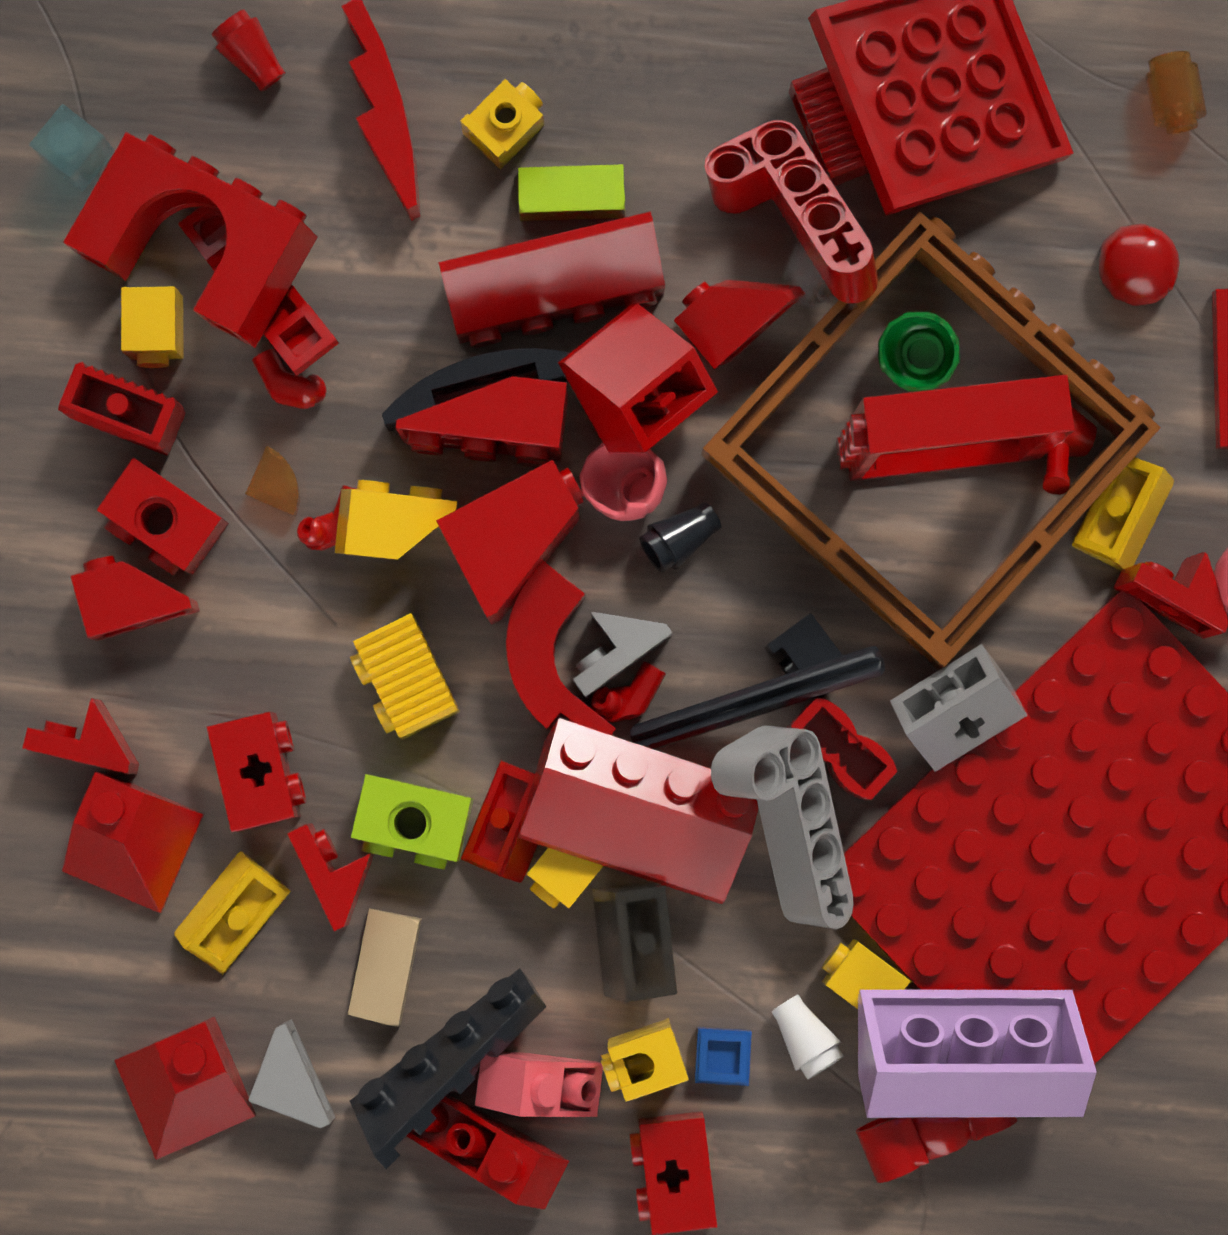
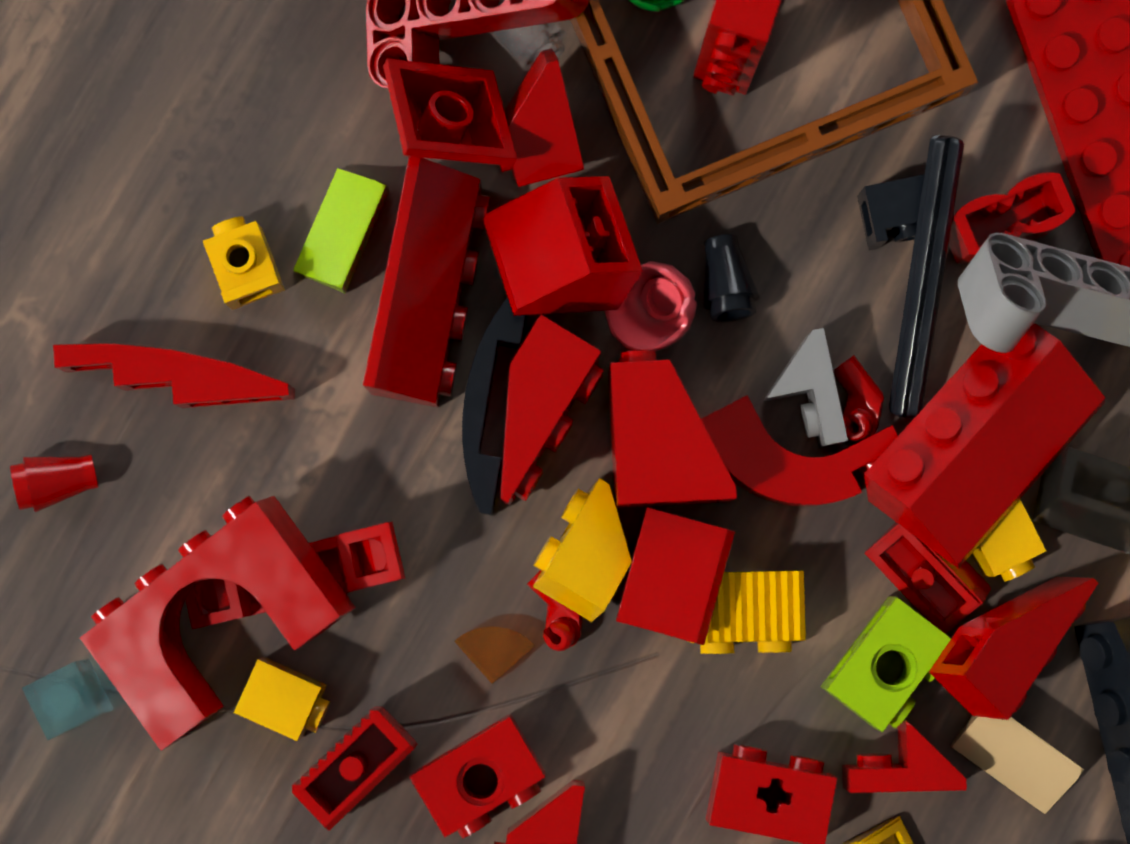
camera: 70 degrees left, 0 degrees up
(286, 387) = (404, 595): red arm -> none
(401, 598) = (675, 576): none -> red slope
(465, 908) = (1005, 649): none -> red slope
(703, 229) = (449, 112): none -> red slope
(958, 708) = (1020, 89): light grey brick -> none

